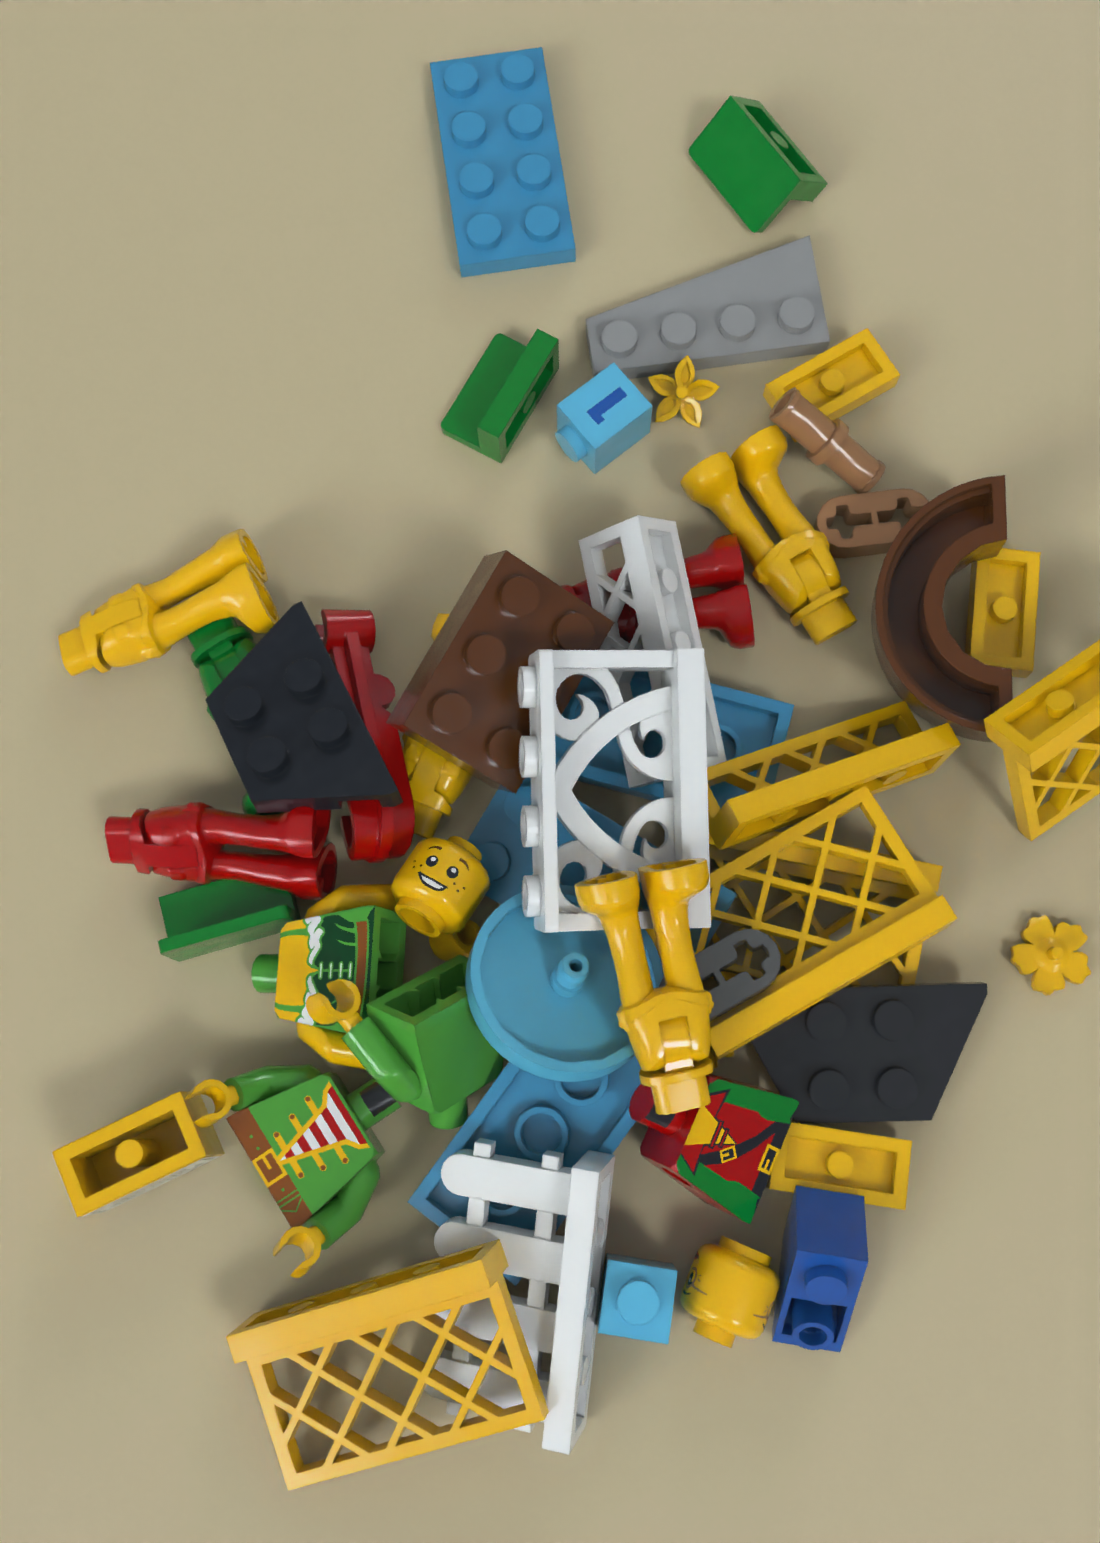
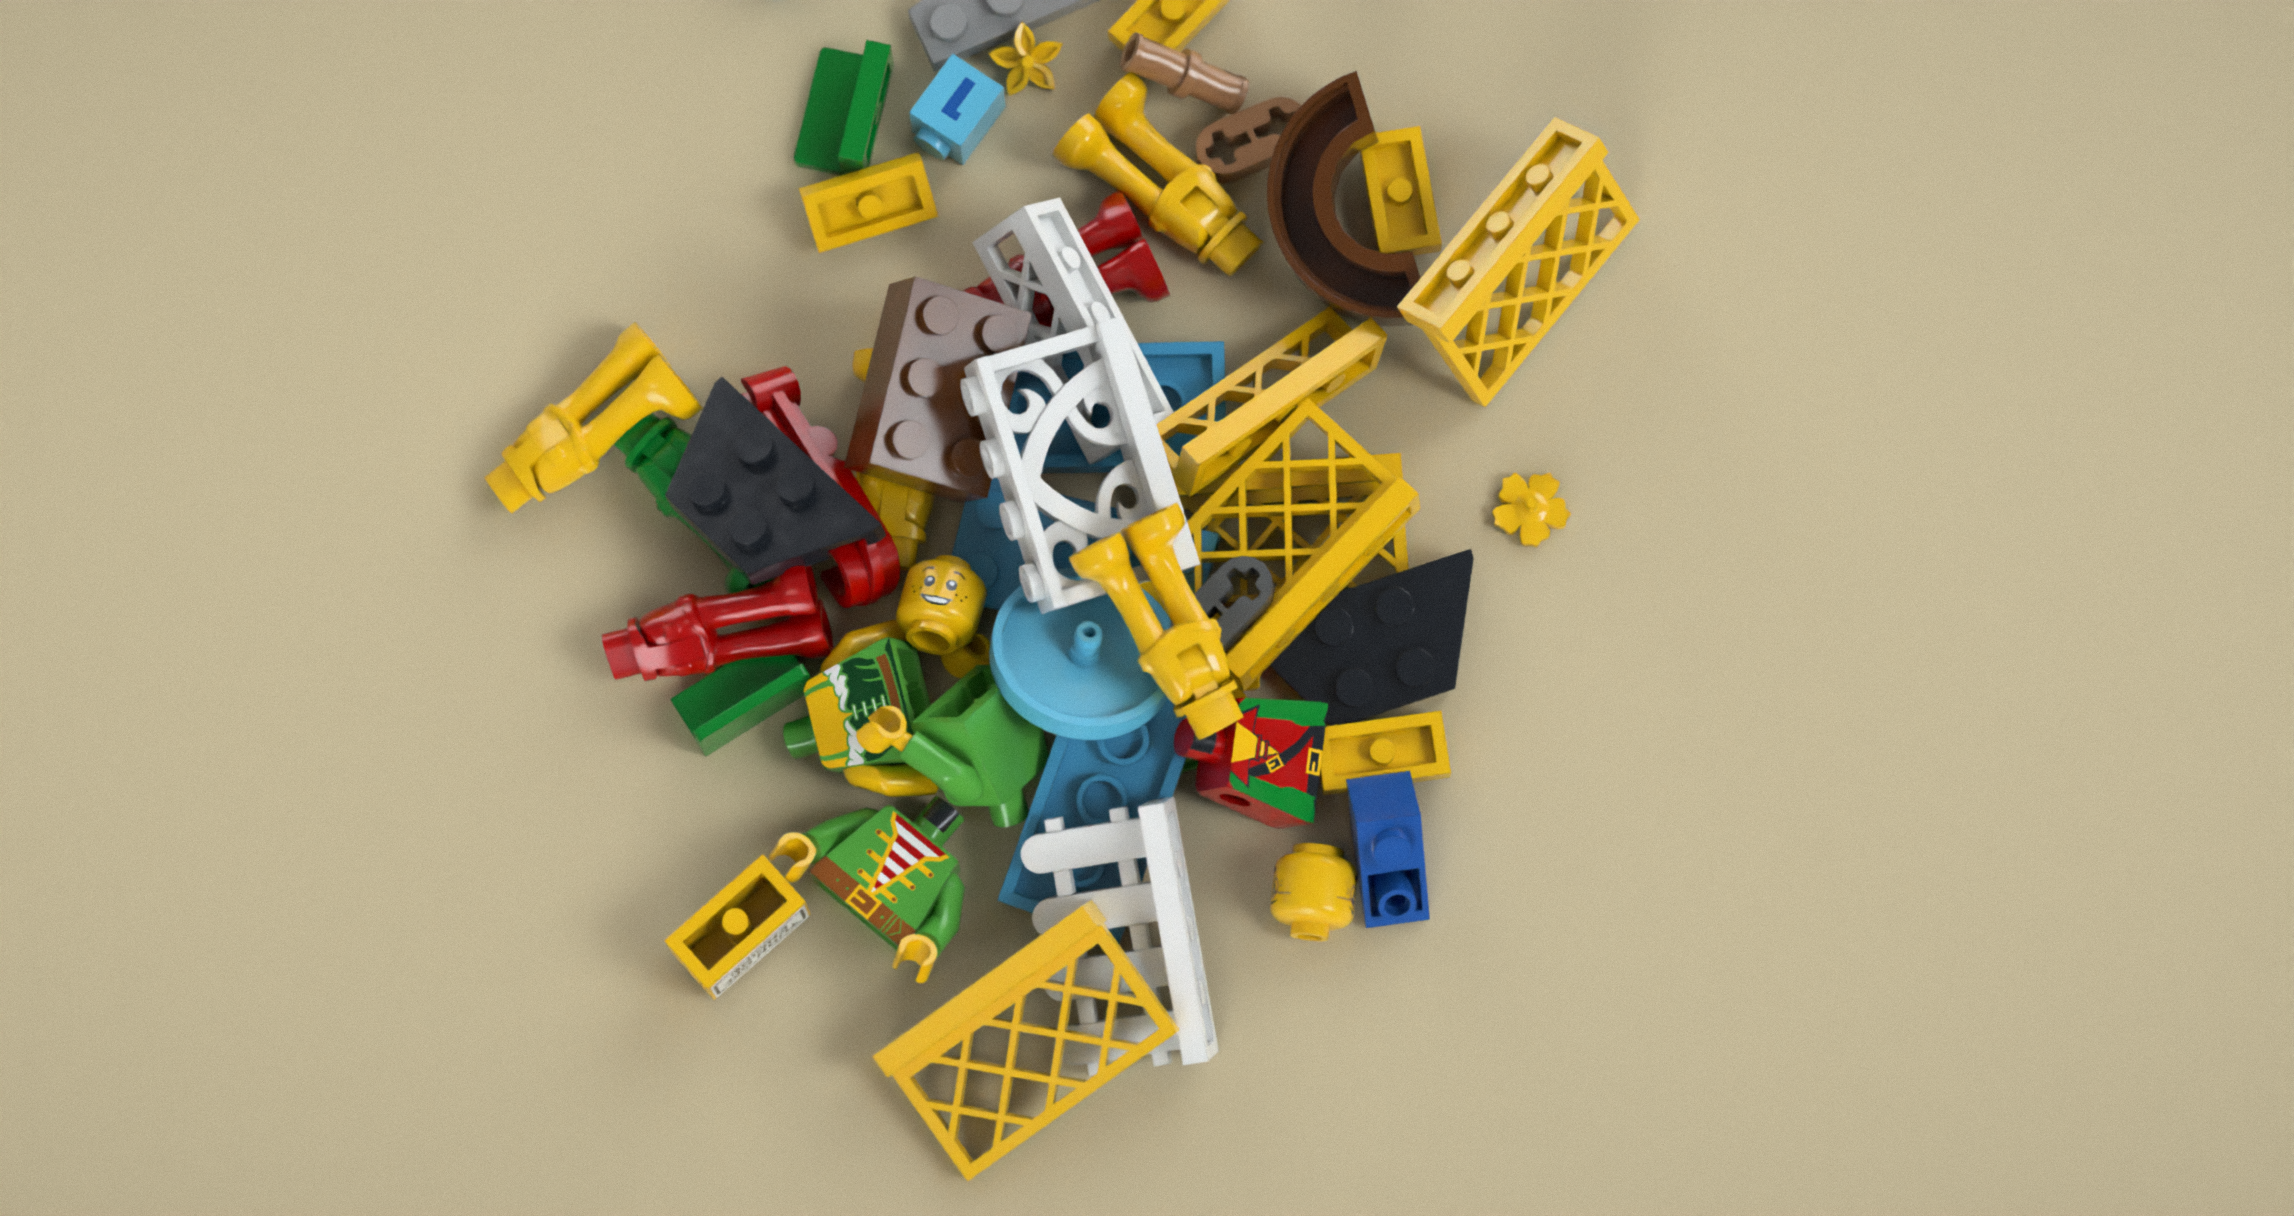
camera: 20 degrees left, 0 degrees up
(494, 480) = (868, 202): none -> yellow plate
(637, 1298) = (1230, 919): medium azure brick -> none

